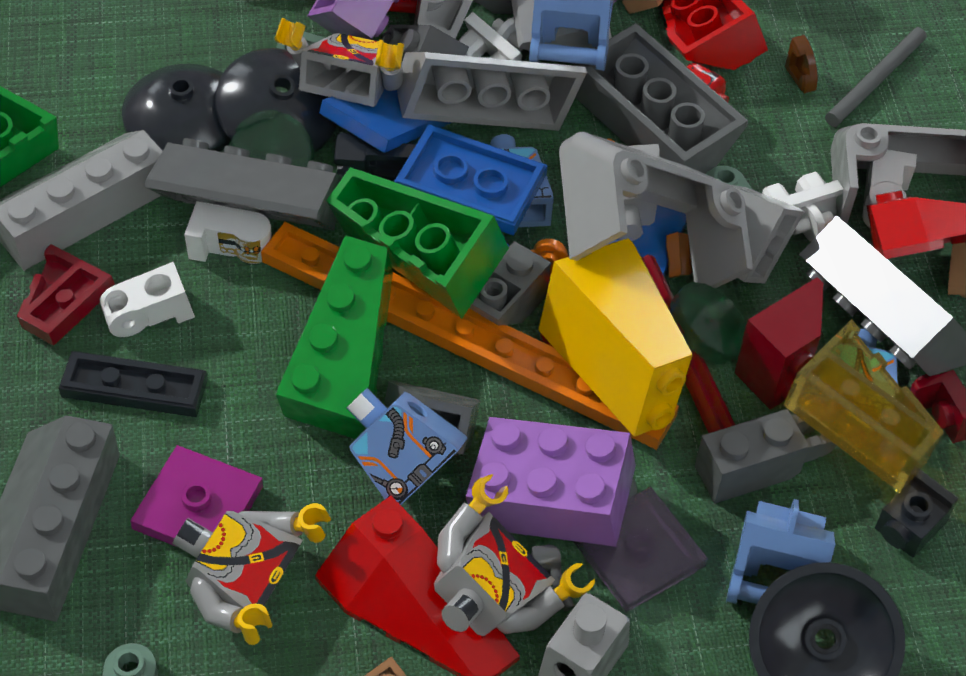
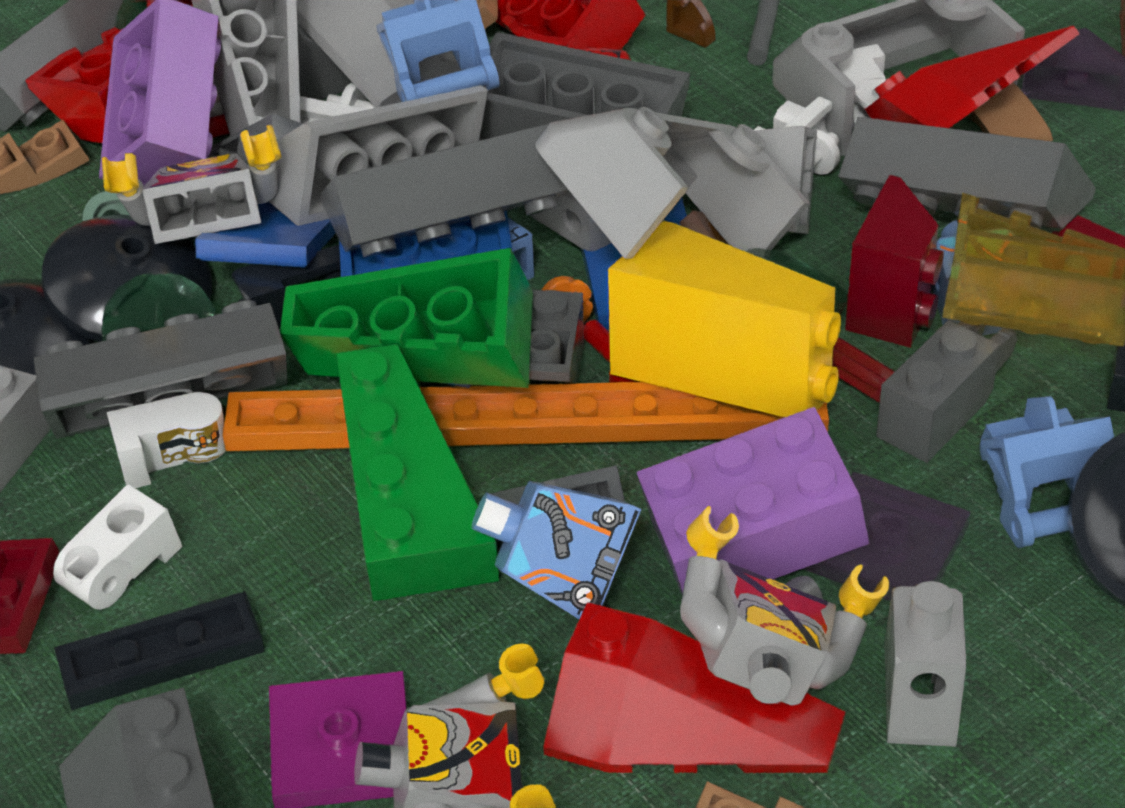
camera: 25 degrees left, 10 degrees down
(489, 141) = (441, 190): none -> dark grey slope

